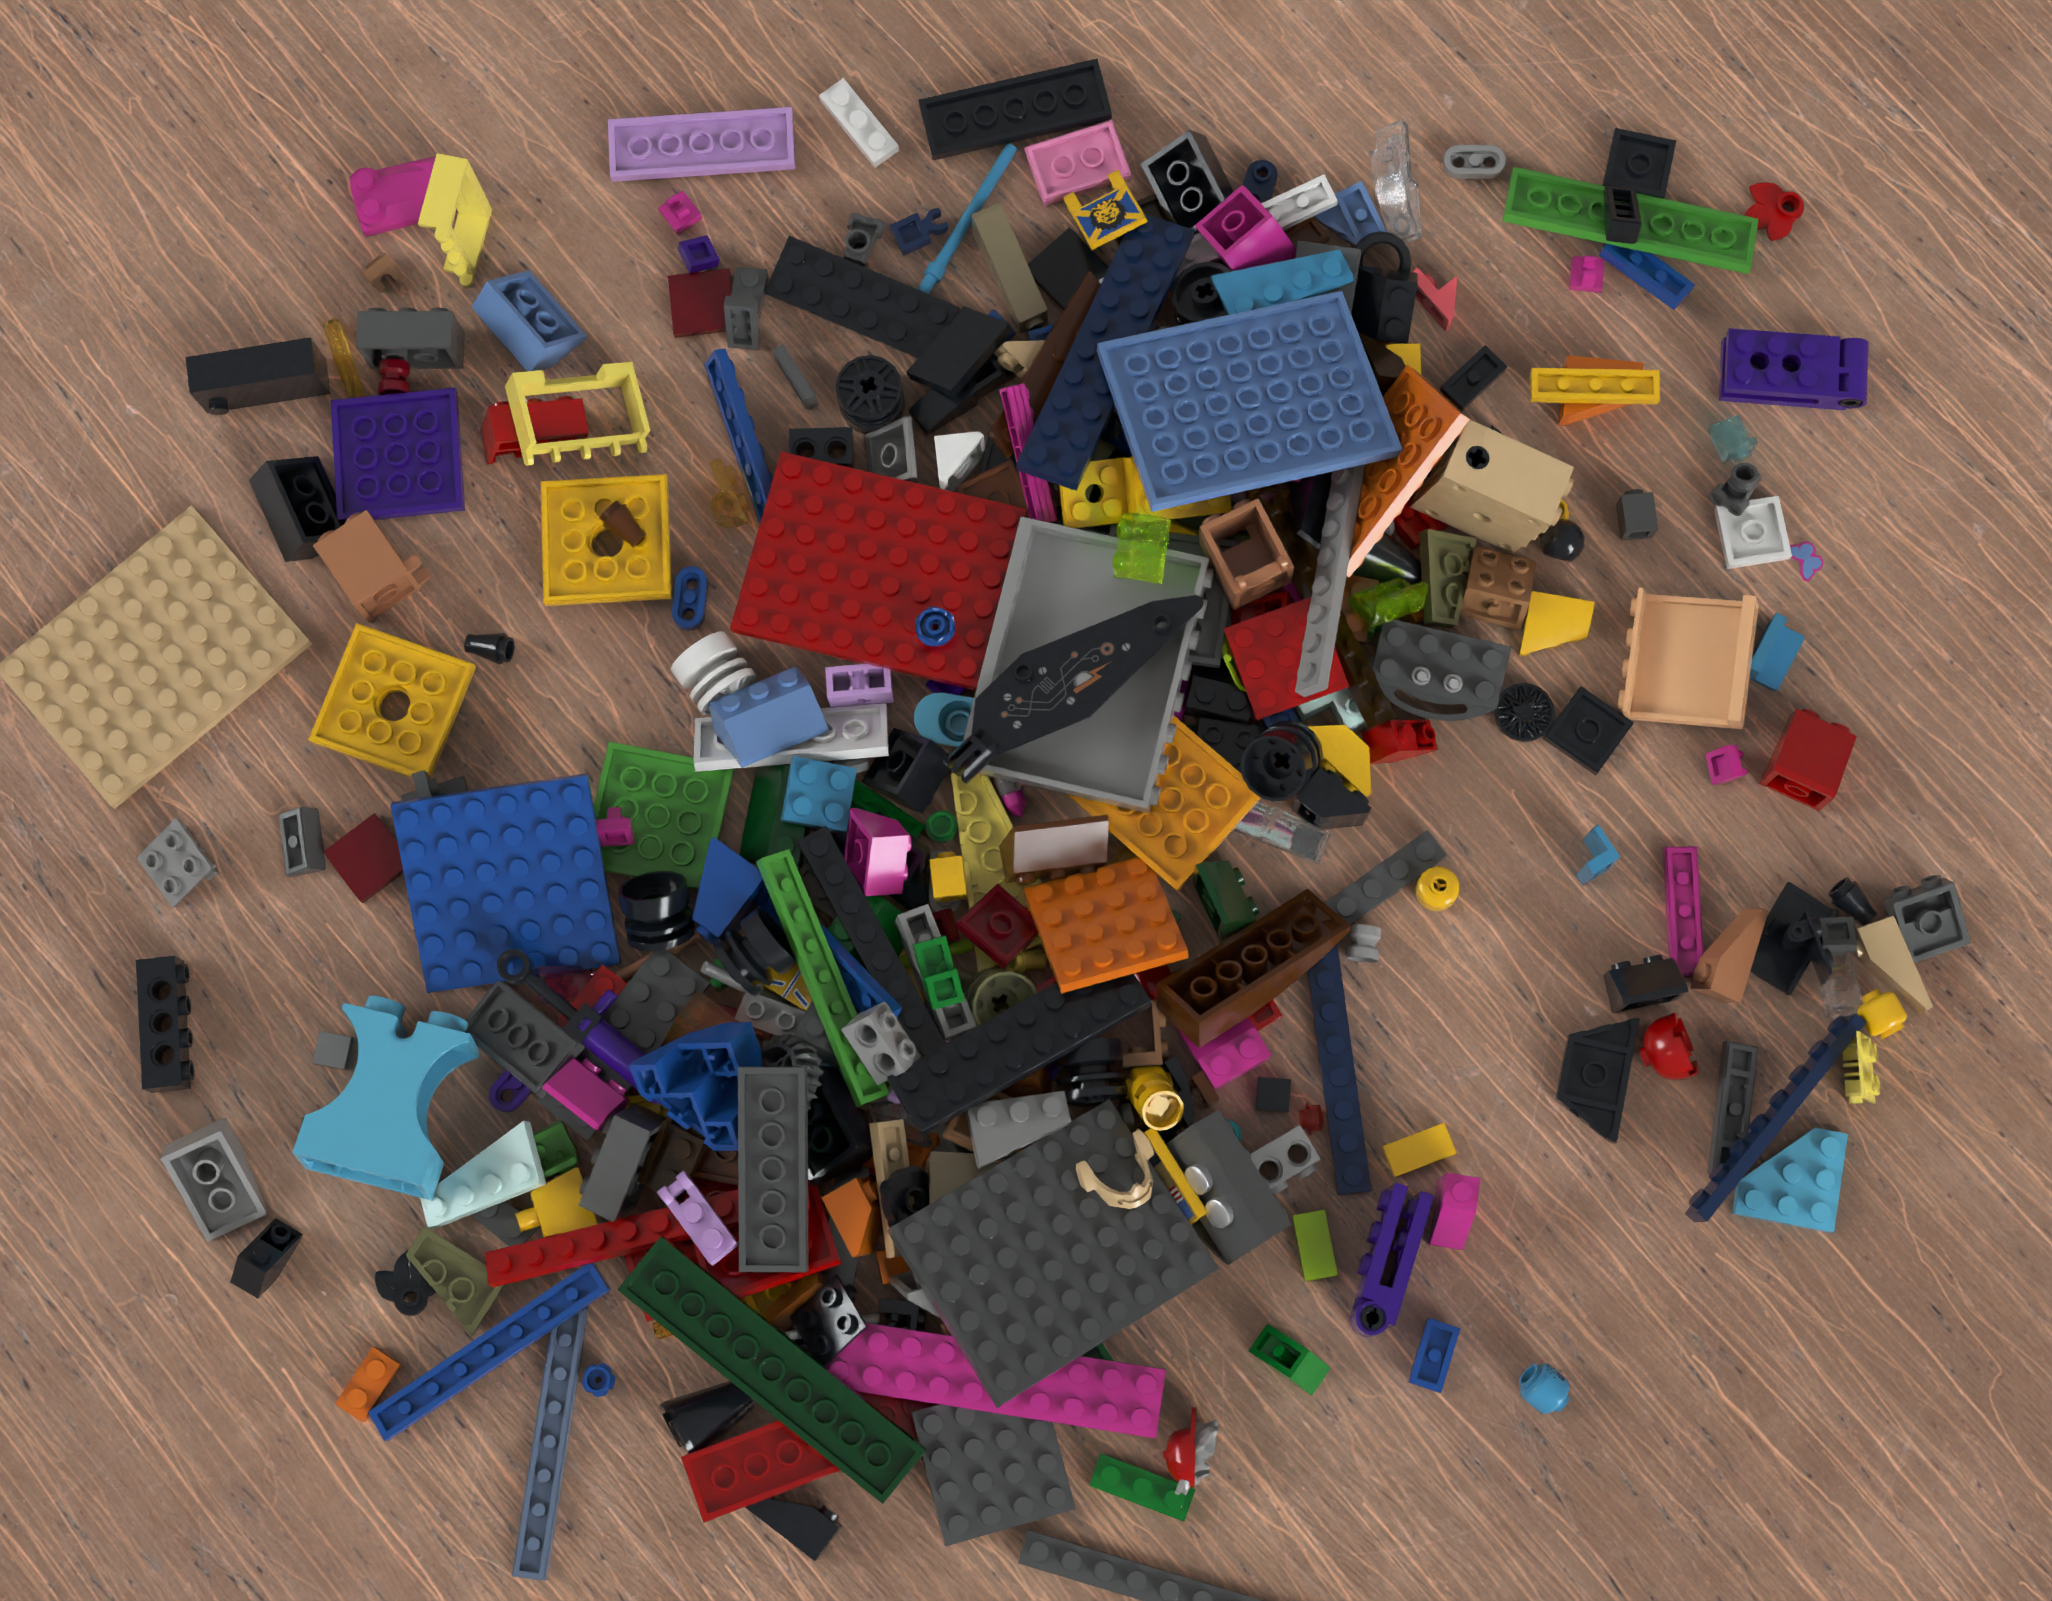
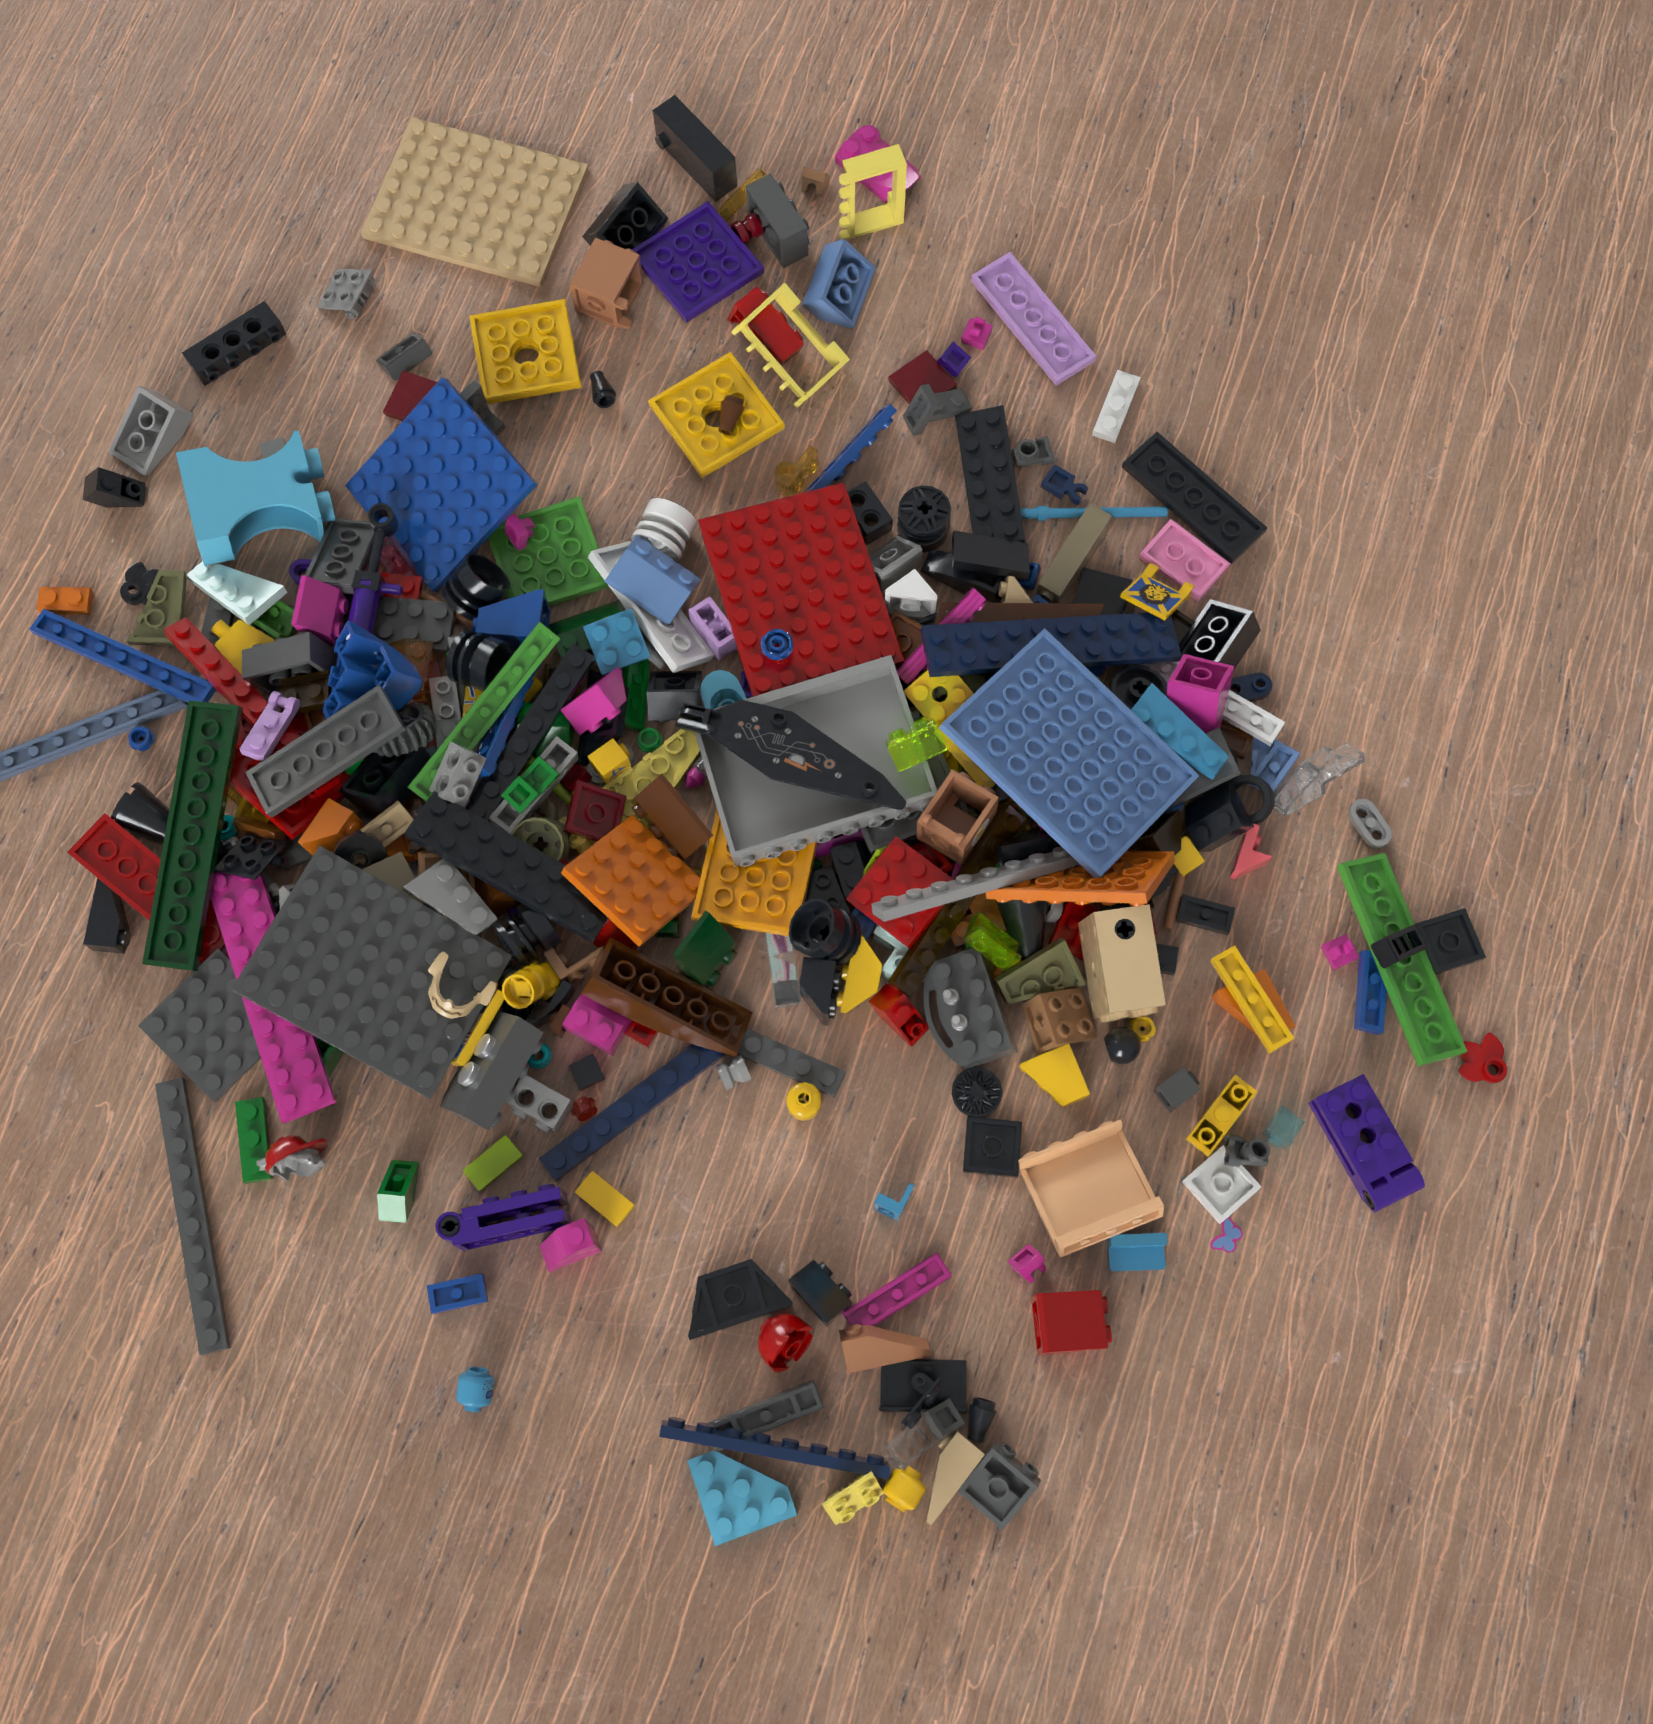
camera: 55 degrees right, 5 degrees down
(689, 599) = (709, 490): blue plate -> none
(795, 377) = (907, 467): dark grey tile -> none
(1689, 489) = (1221, 1115): none -> yellow slope

